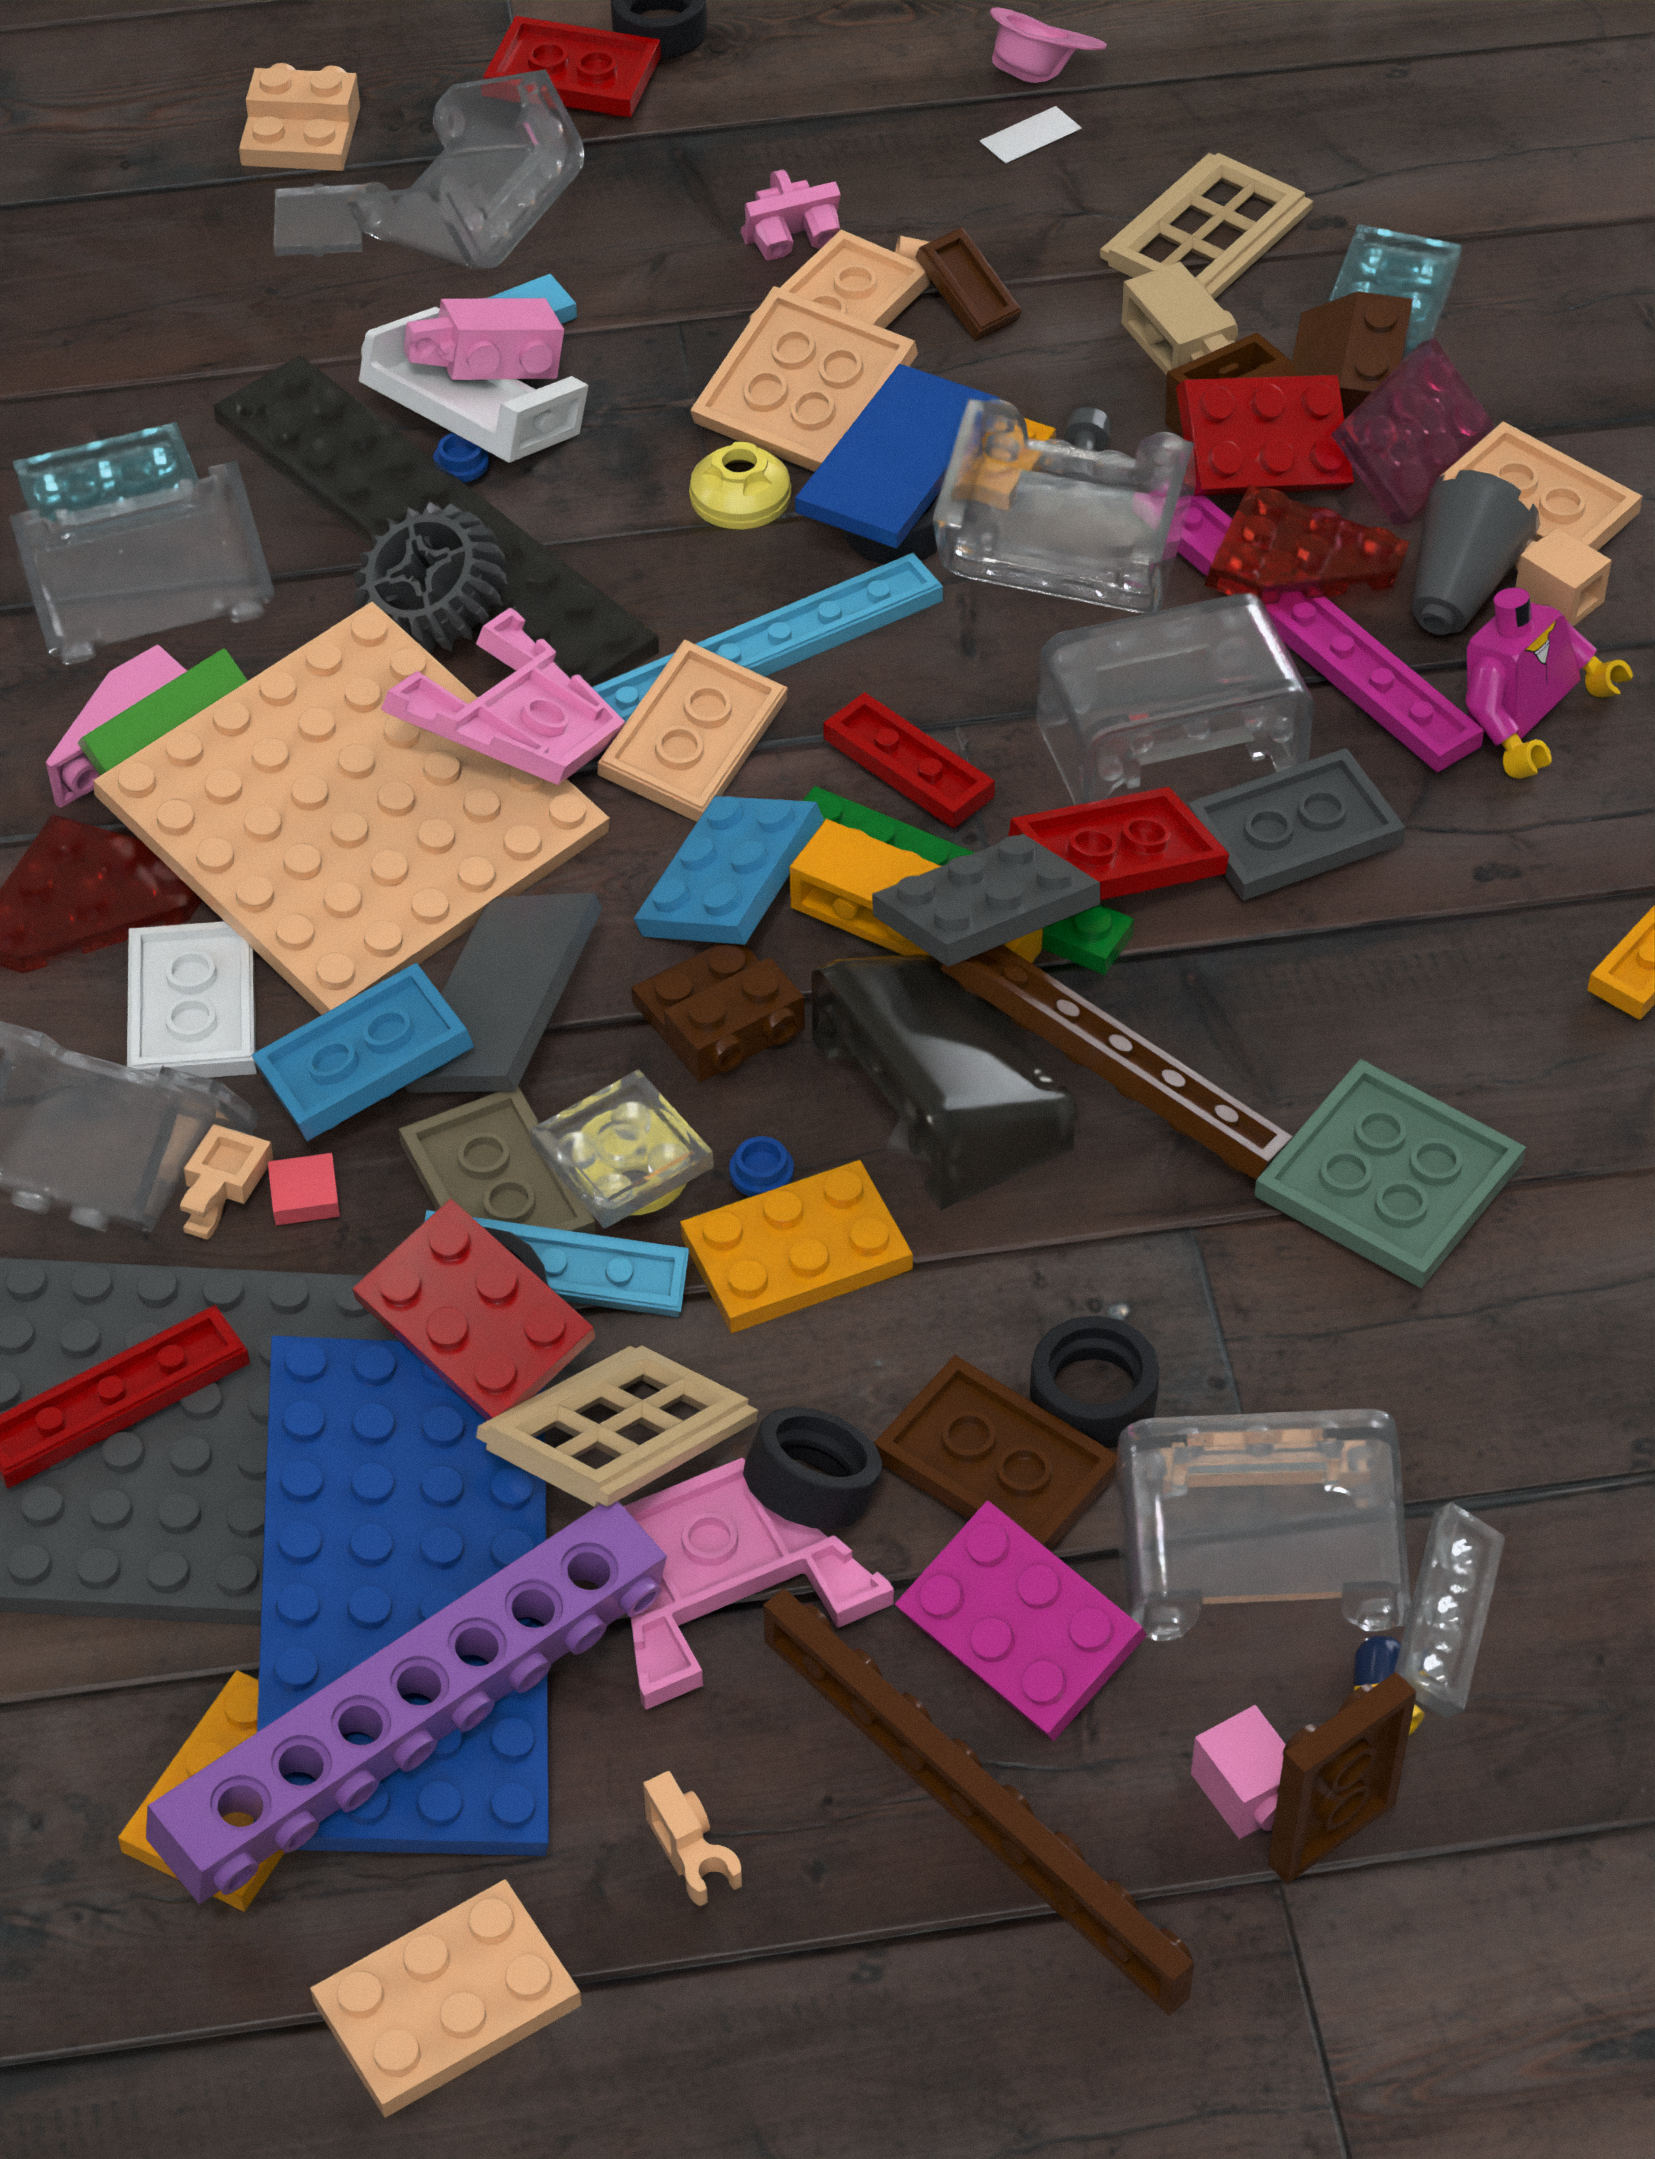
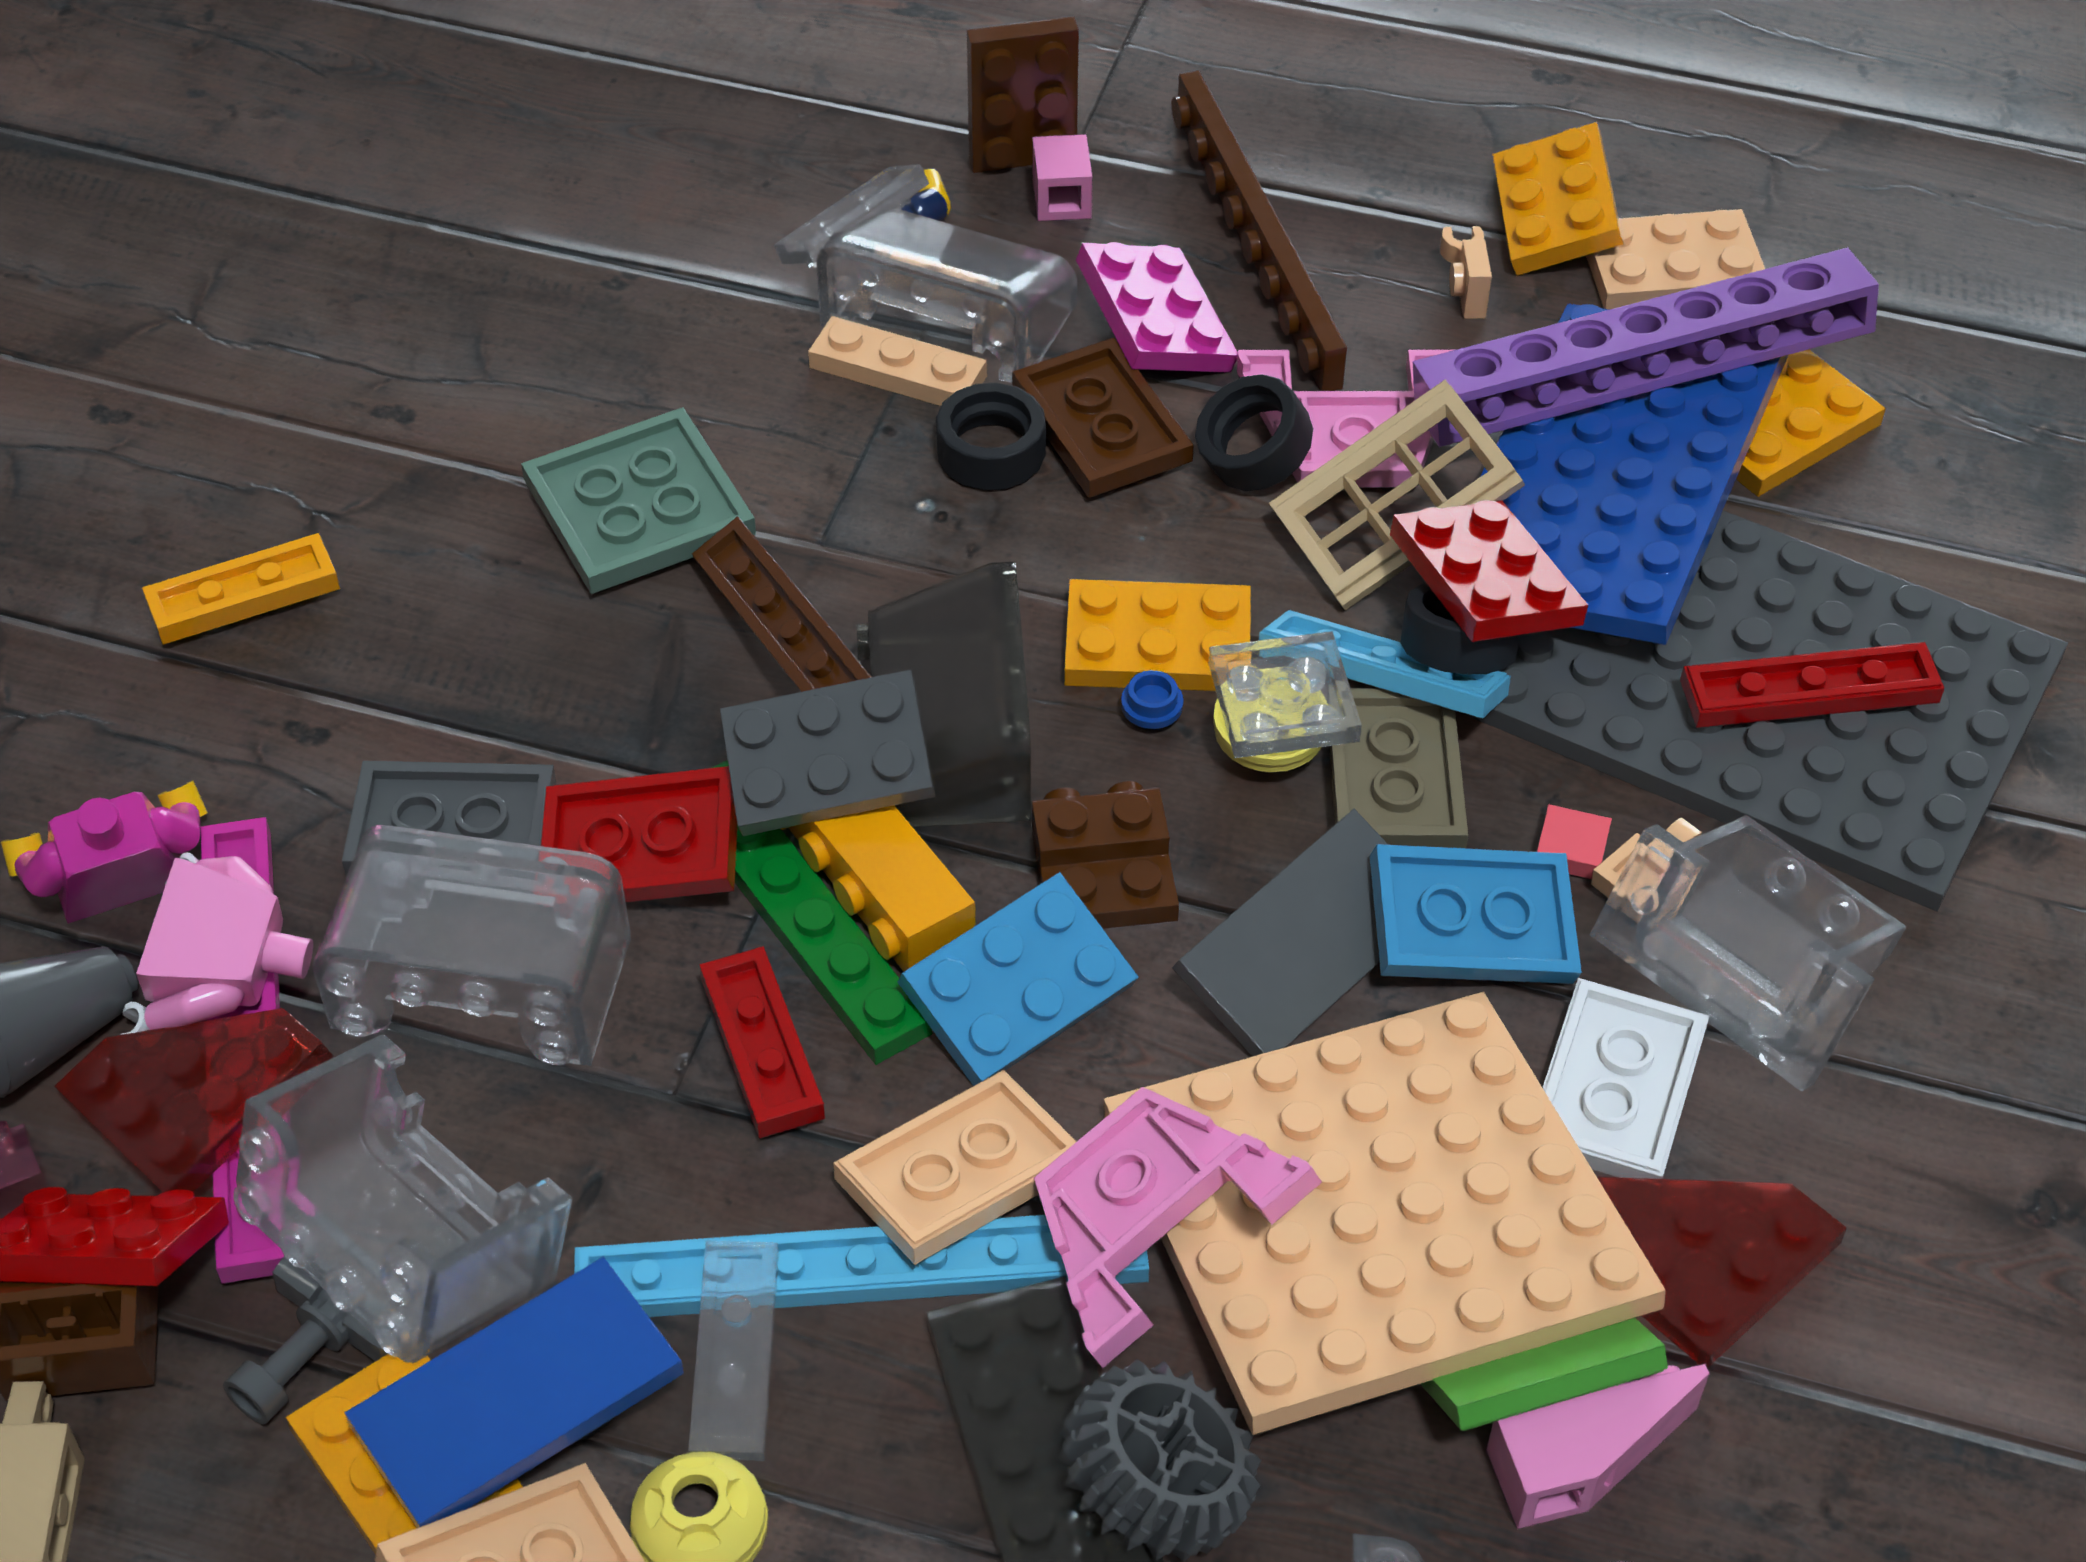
camera: 155 degrees left, 0 degrees up
(624, 2002) = (1557, 199): none -> light orange plate
(780, 566) = (734, 1349): none -> clear tile
(1370, 615) = (212, 944): none -> bright pink torso

